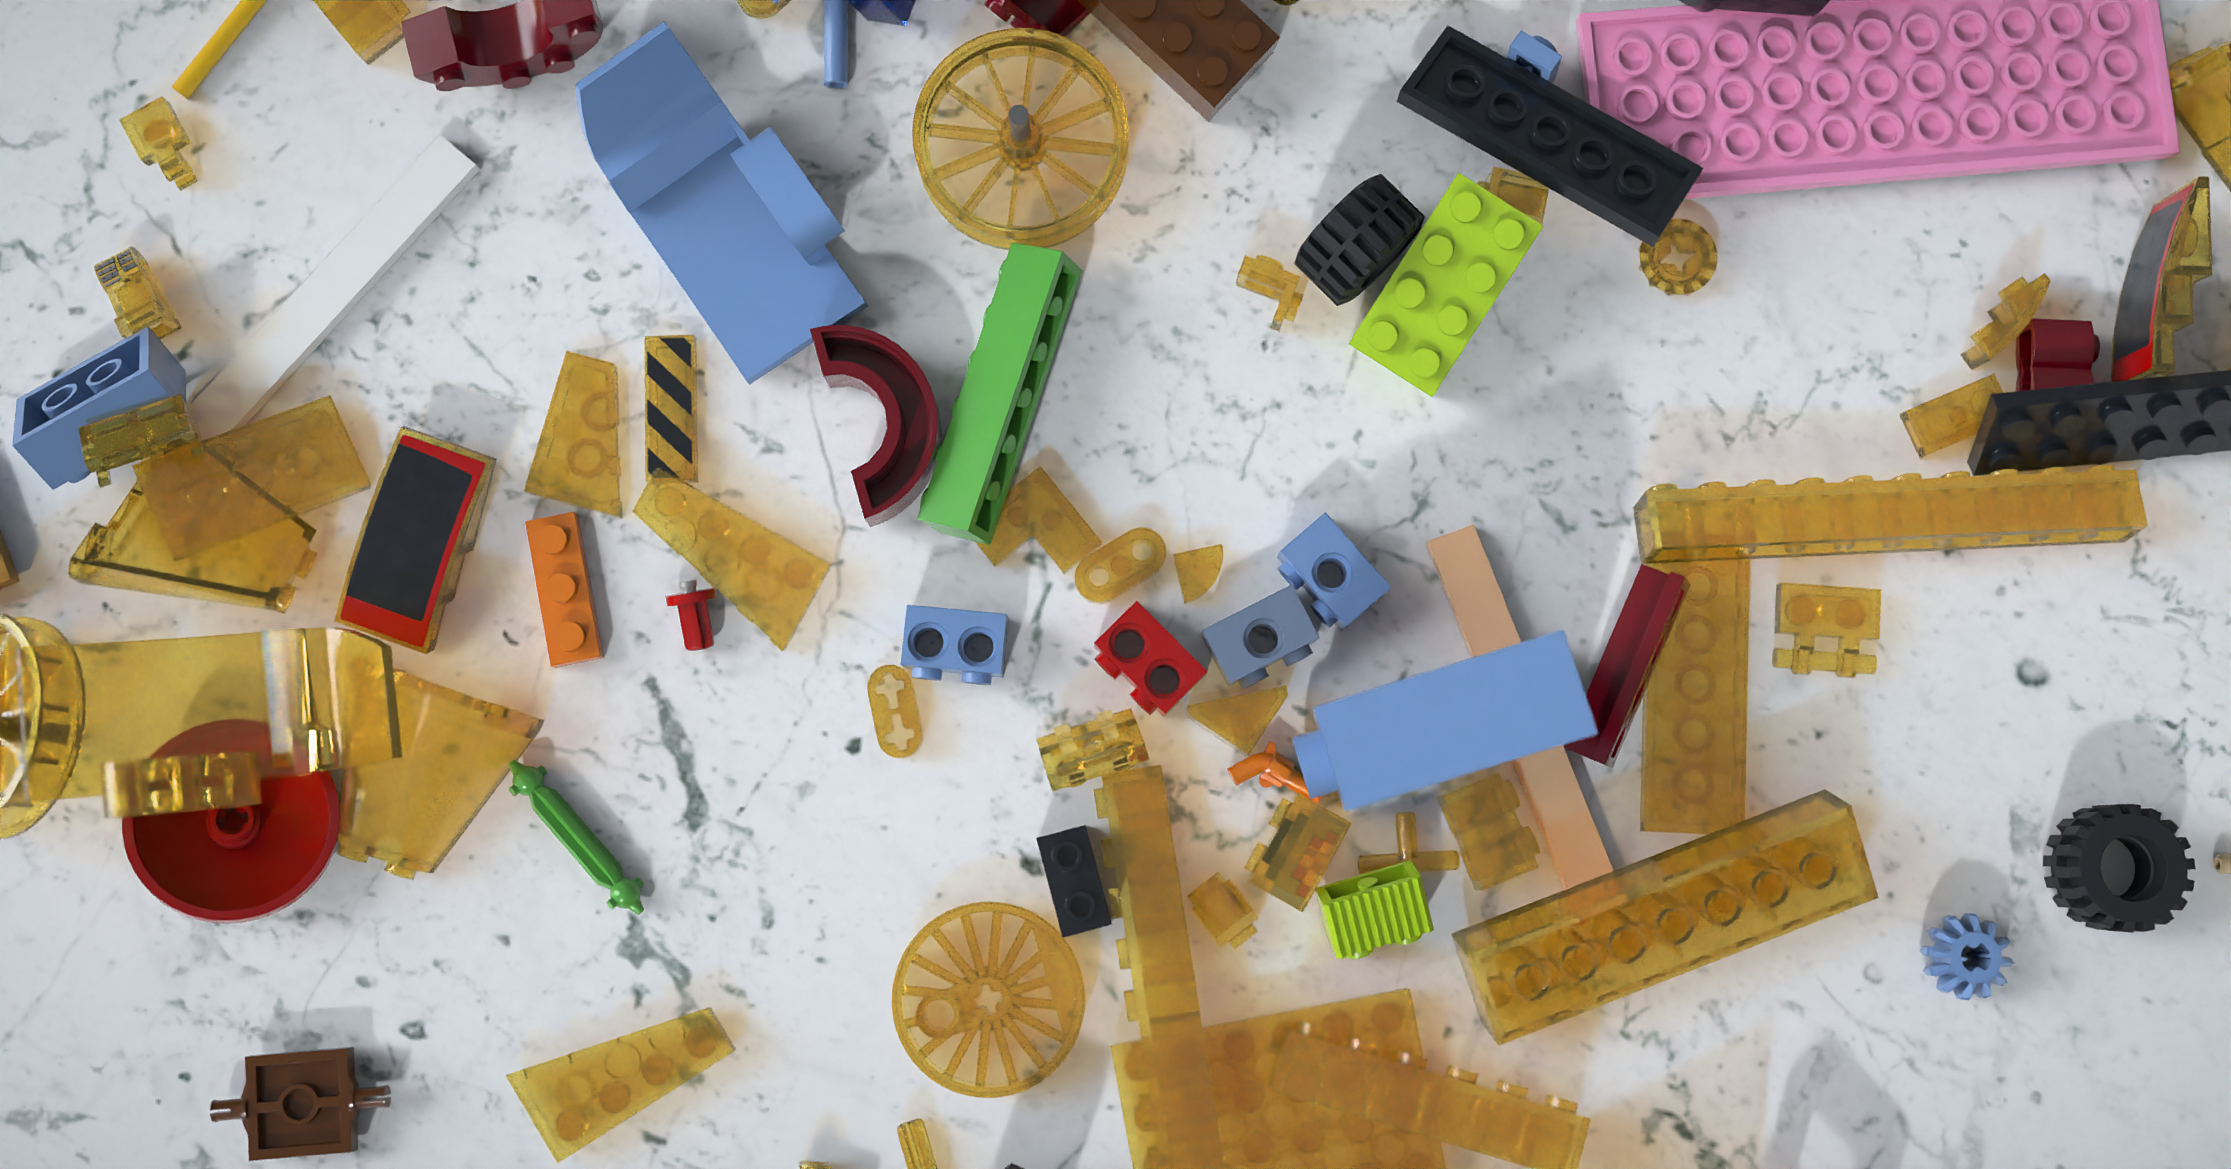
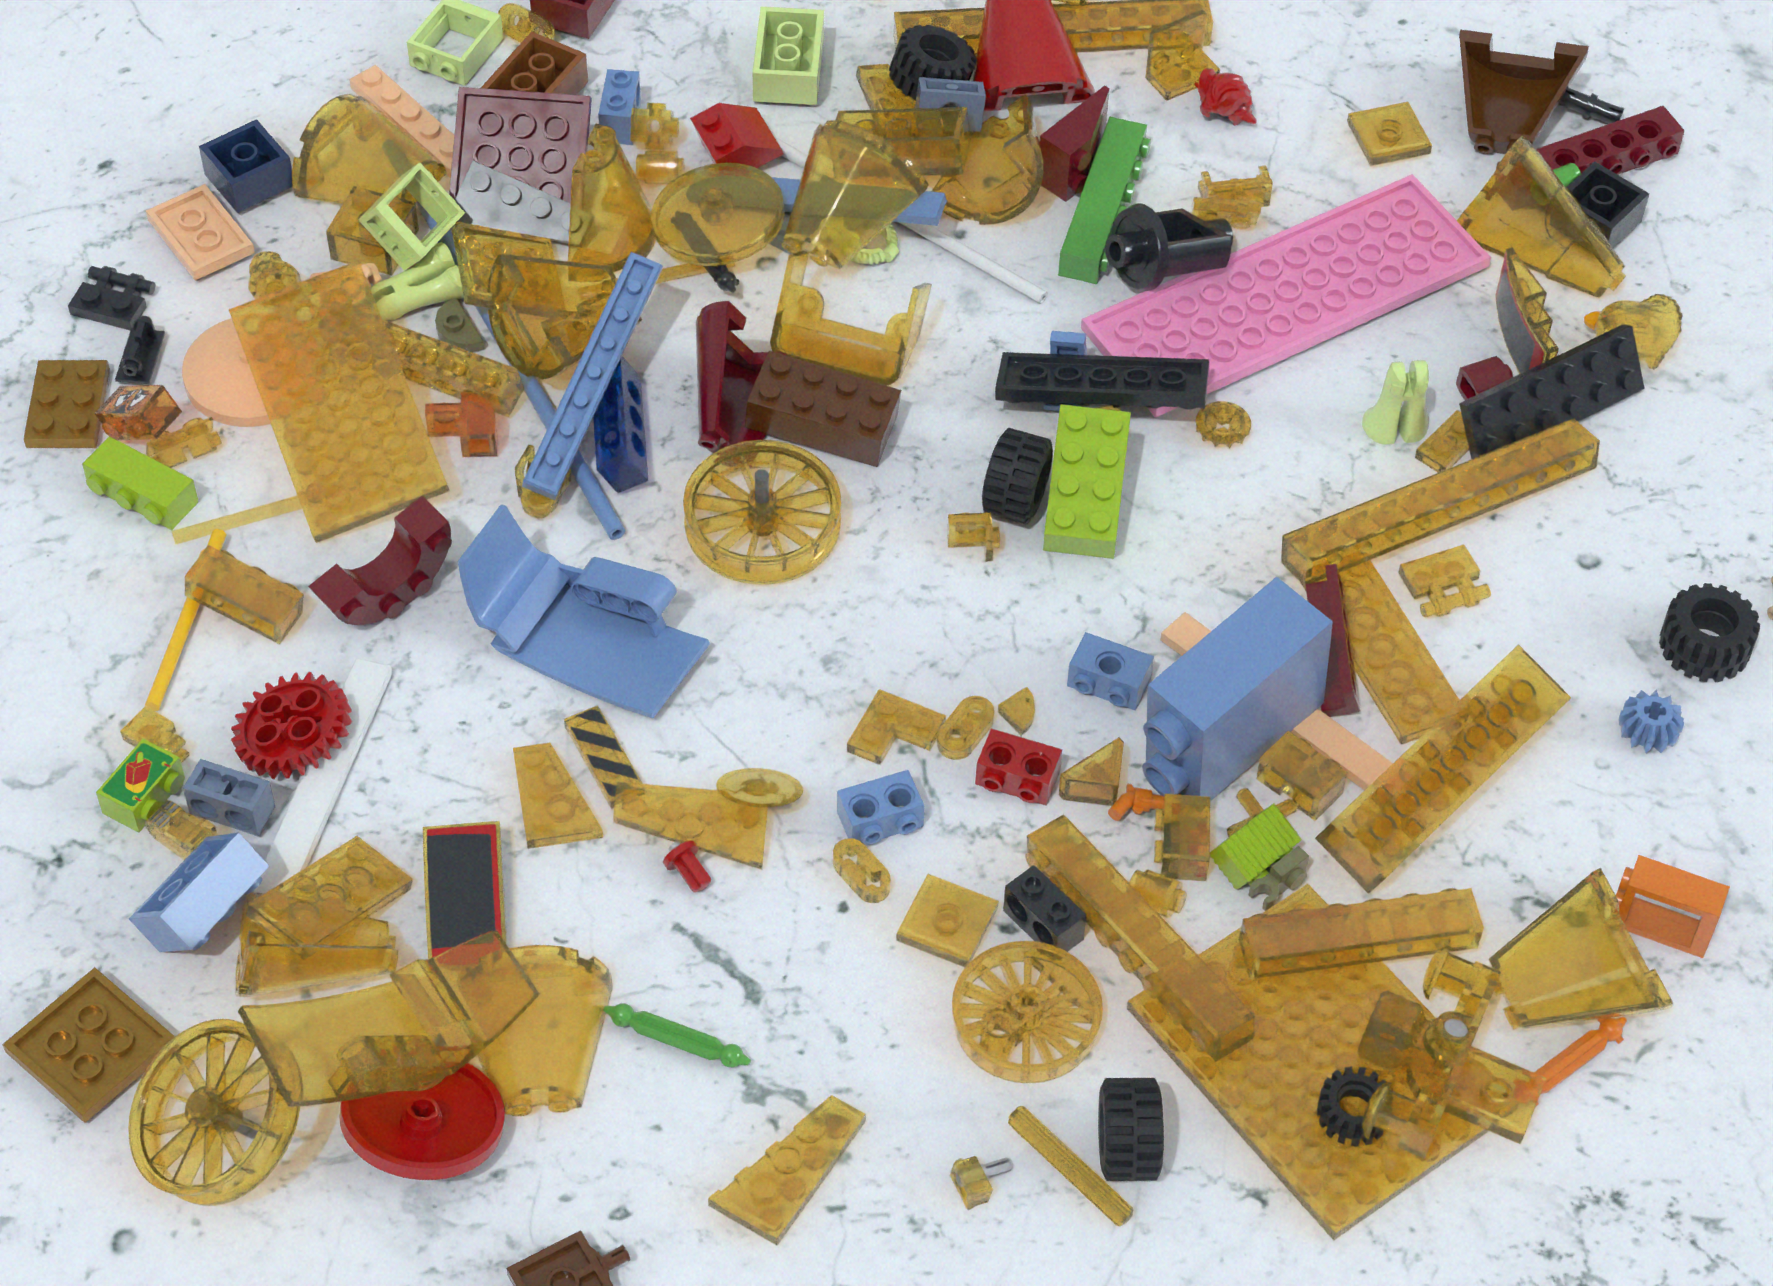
camera: 25 degrees left, 30 degrees down
(113, 208) = (140, 785): none -> brick
(138, 436) = (248, 882): clear yellow hinge -> none
(198, 278) = (229, 797): none -> sand blue brick
(304, 235) = (291, 725): none -> red gear
(564, 589) = (586, 891): orange plate -> none
(824, 548) = (759, 787): none -> clear yellow sticker
(913, 433) = (763, 676): dark red brick -> none
(959, 831) = (947, 920): none -> clear yellow plate
(1000, 393) = (829, 654): bright green brick -> none
(1092, 749) = (1013, 822): clear yellow plate -> none
(1282, 616) = (1087, 708): sand blue brick -> none
(1393, 961) = (1283, 875): none -> olive plate
(1920, 346) = (1412, 418): none -> yellowish green piece
(2009, 318) = (1446, 371): clear yellow slope -> none

